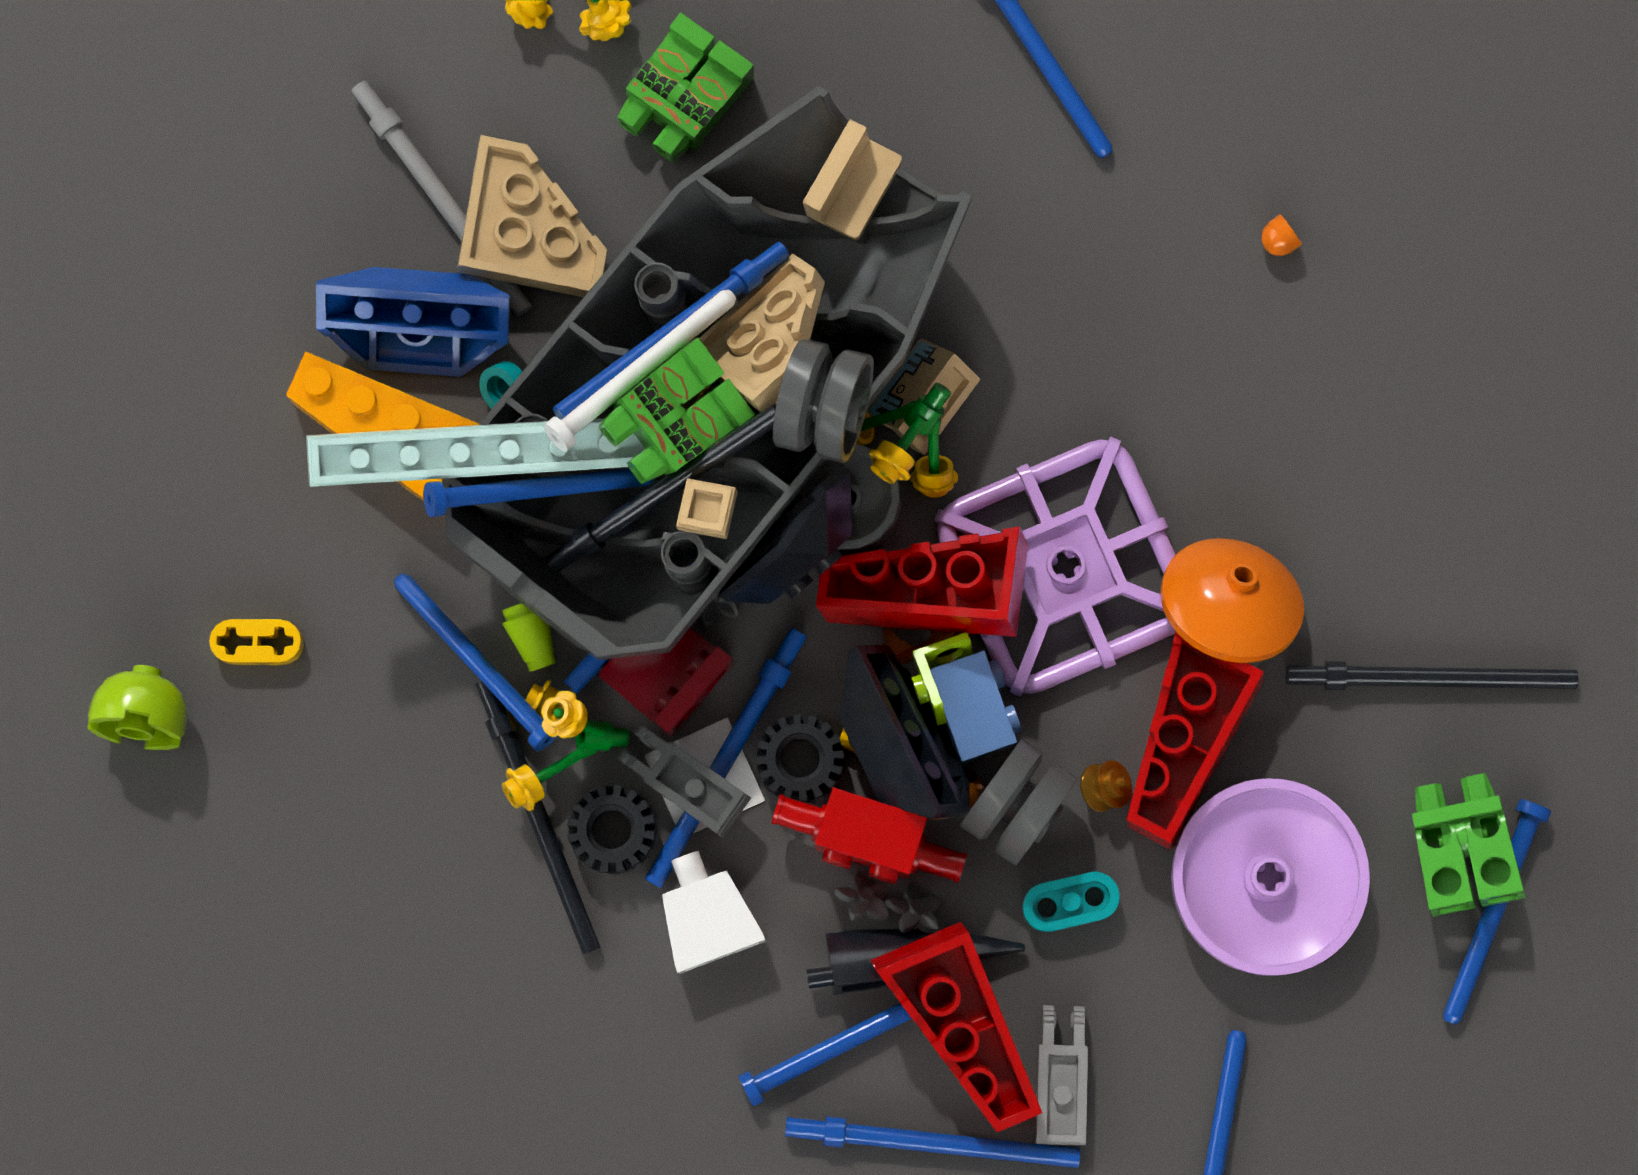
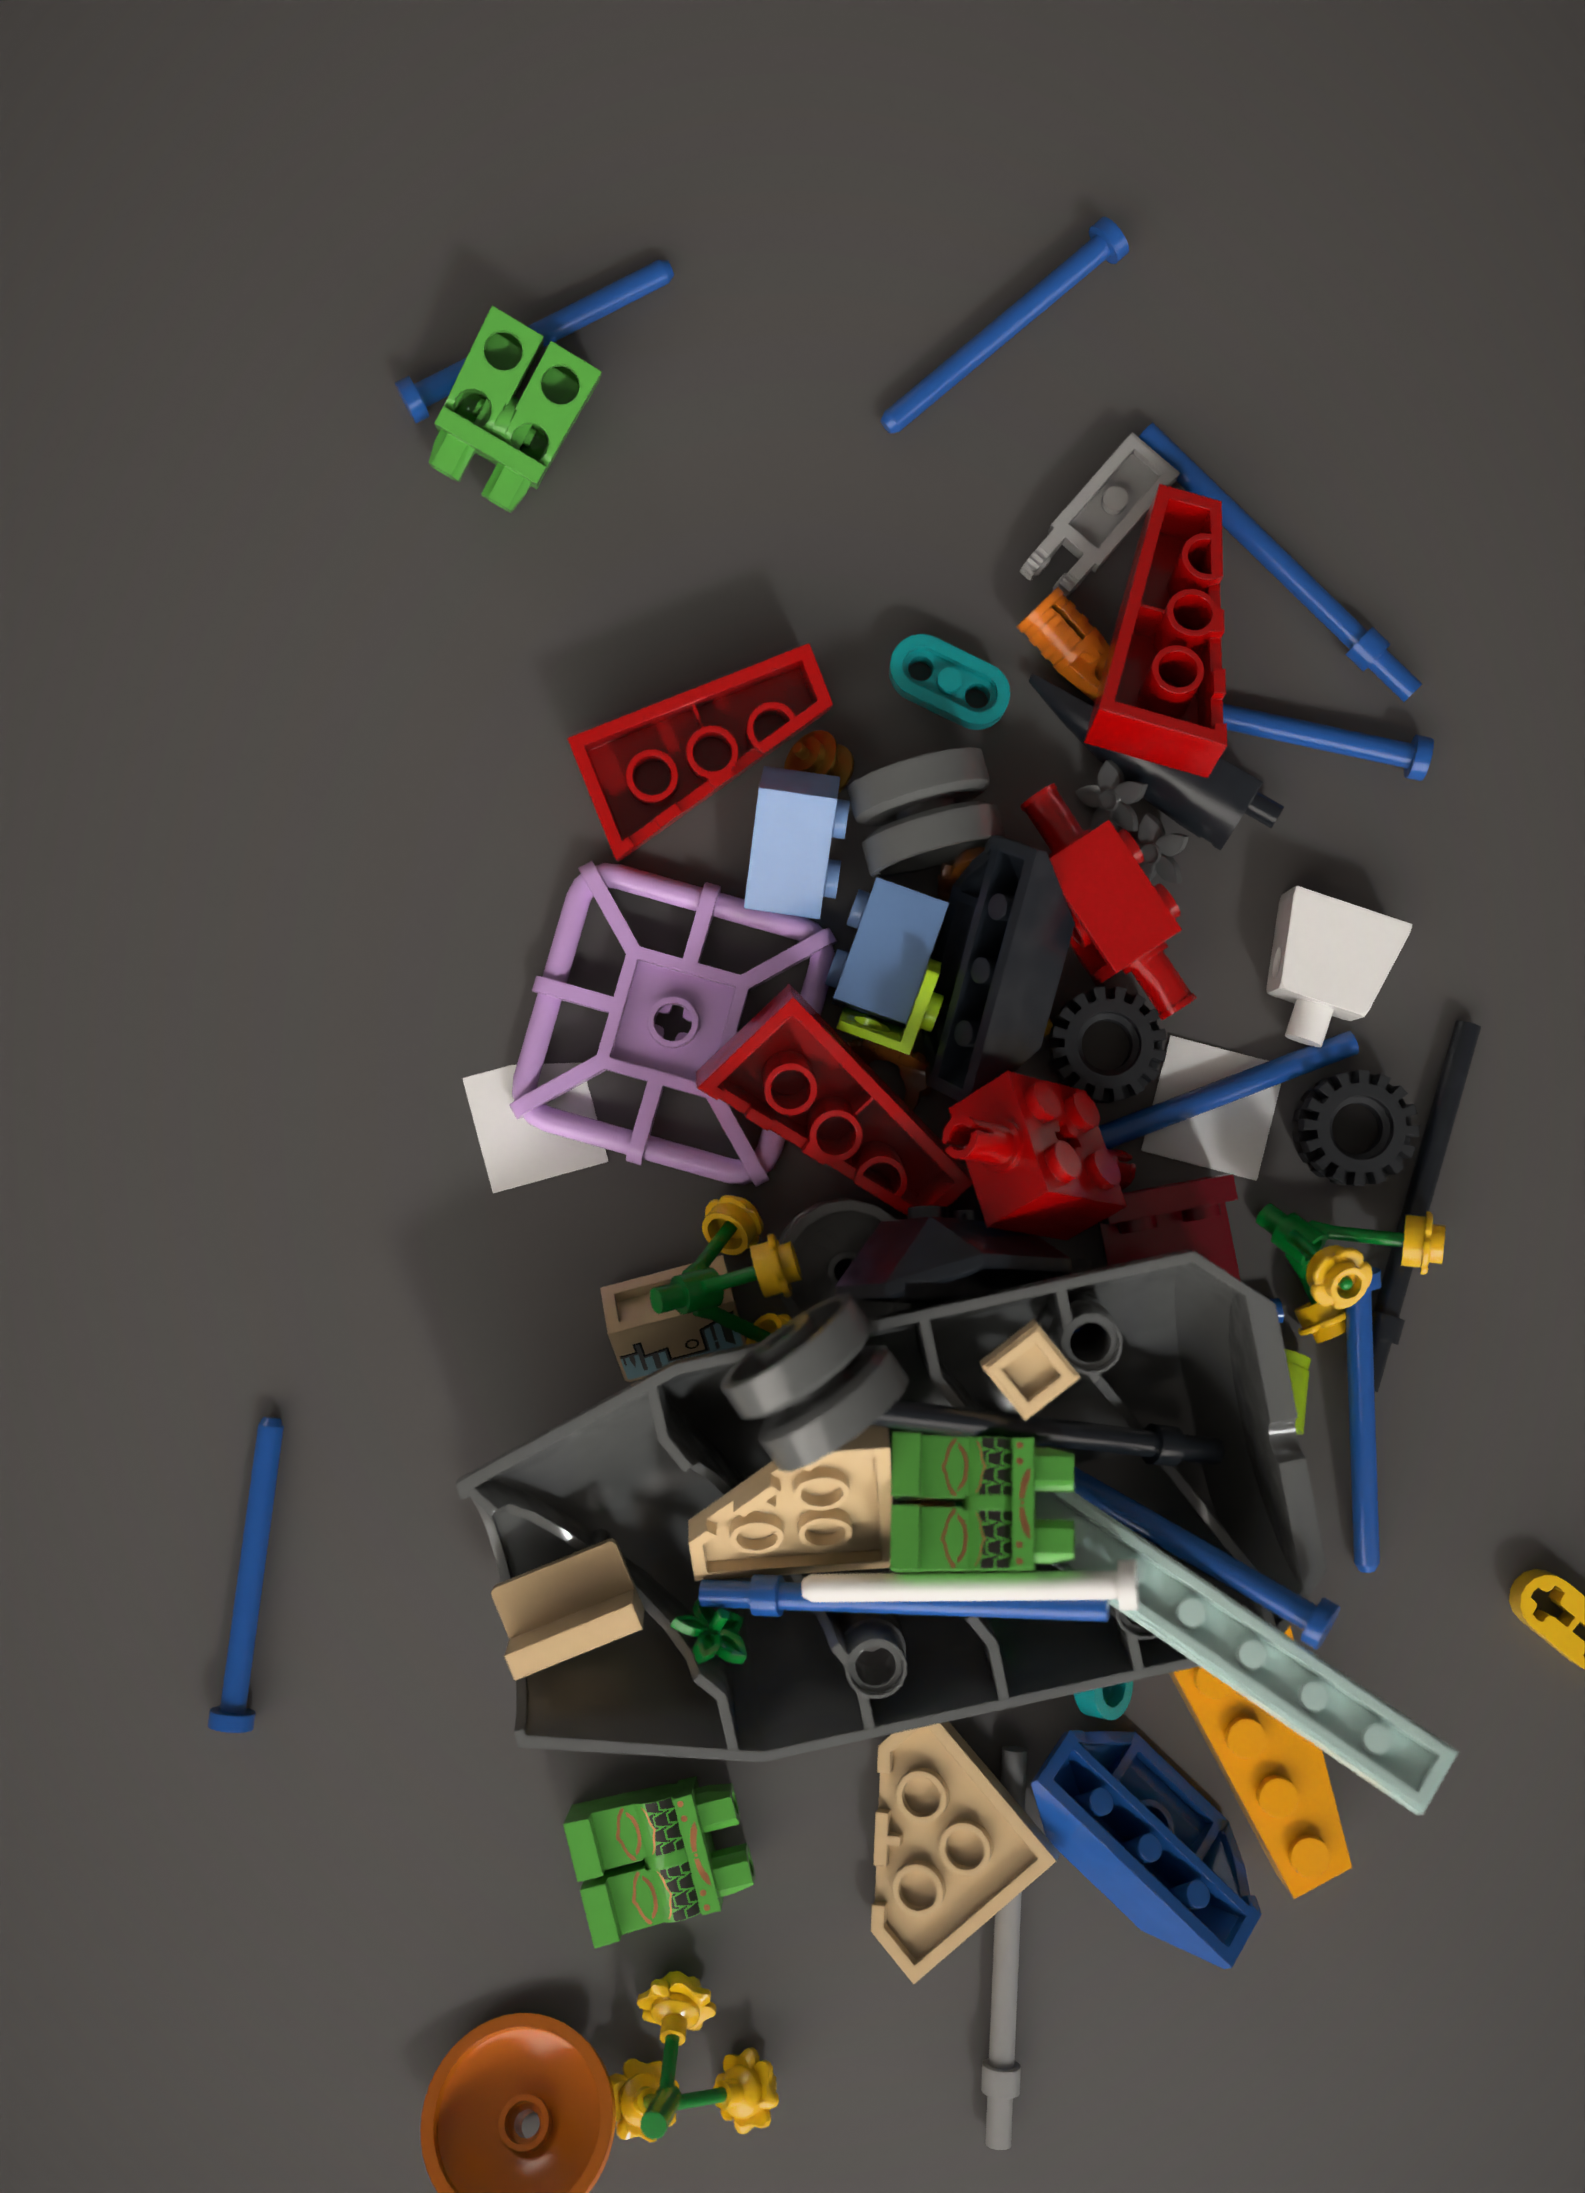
camera: 150 degrees left, 5 degrees up
(689, 784) = (1245, 1110): dark grey hinge -> none
(758, 233) = (714, 1632): none -> green plant
(791, 647) = (1037, 1157): none -> red brick
(1023, 984) = (1067, 641): none -> orange hinge
(1082, 722) = (793, 841): none -> brick
(1094, 419) = (513, 1148): none -> white sticker
(1232, 600) = (561, 839): orange dish -> none
(1270, 877) = (731, 538): lavender dish -> none
(1279, 237) = (167, 1183): orange hinge -> none
(1337, 675) = (490, 689): black bar -> none

